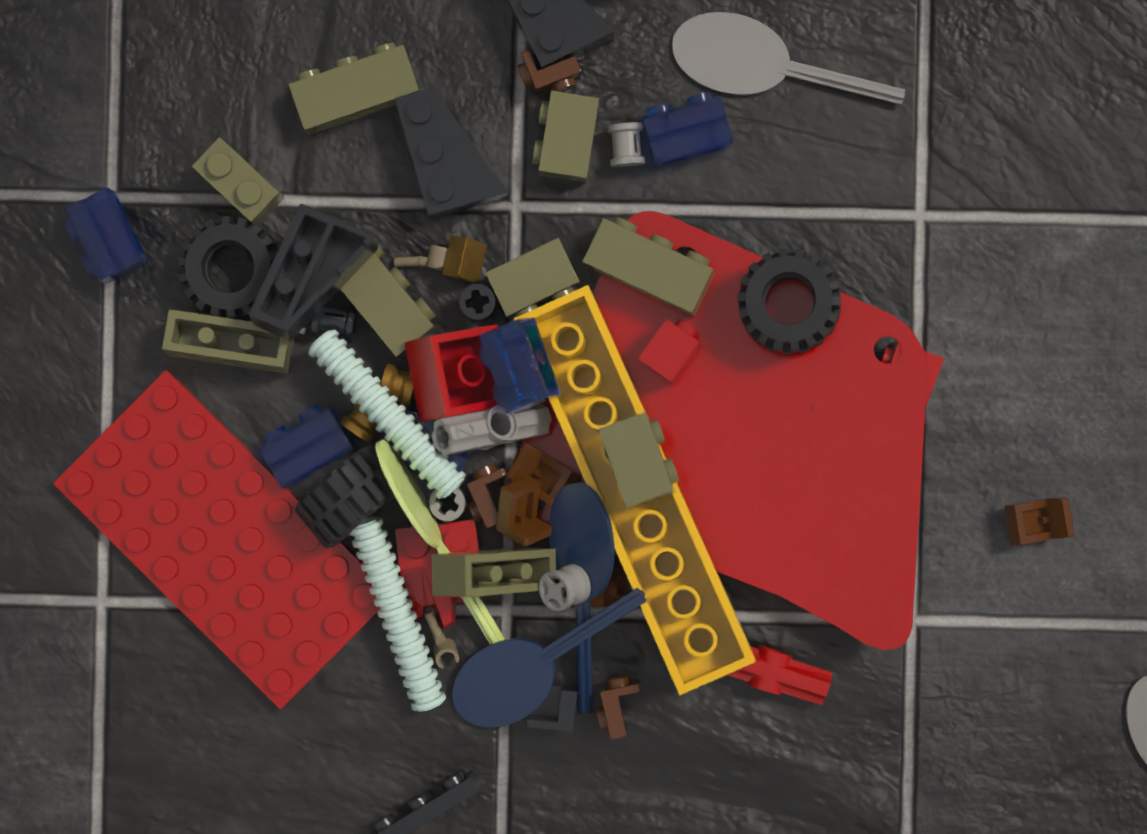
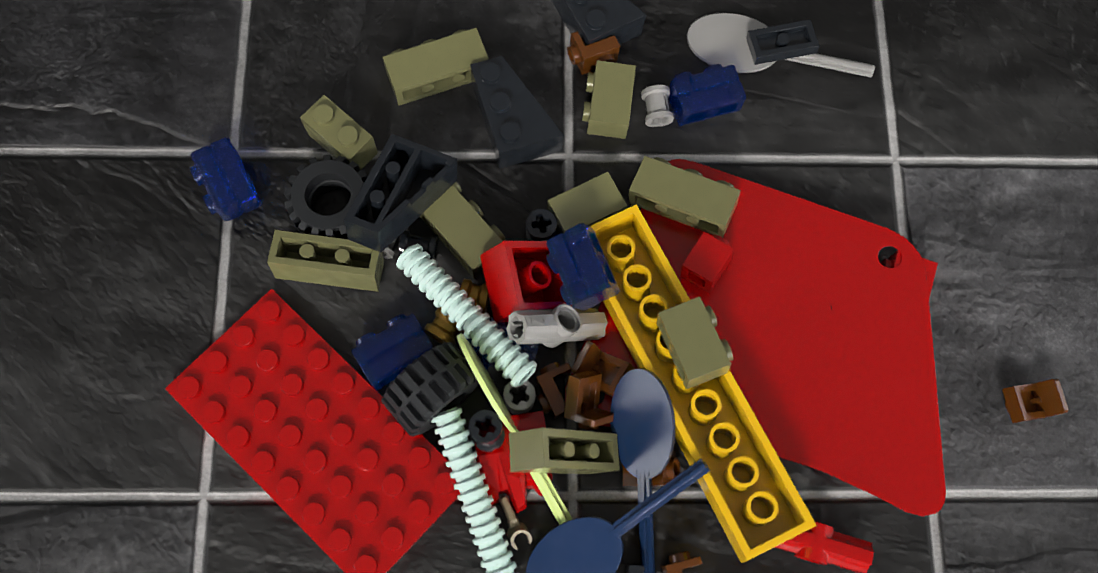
camera: 10 degrees left, 15 degrees down
(406, 534) = (482, 421): none -> black bush
(435, 259) = (505, 198): dark tan hand -> none
(464, 259) = (528, 192): pearl gold slope -> none
(564, 587) = (620, 462): light grey wheel -> none
(780, 267) = (814, 191): black tyre -> none
(788, 62) = (782, 42): none -> black plate

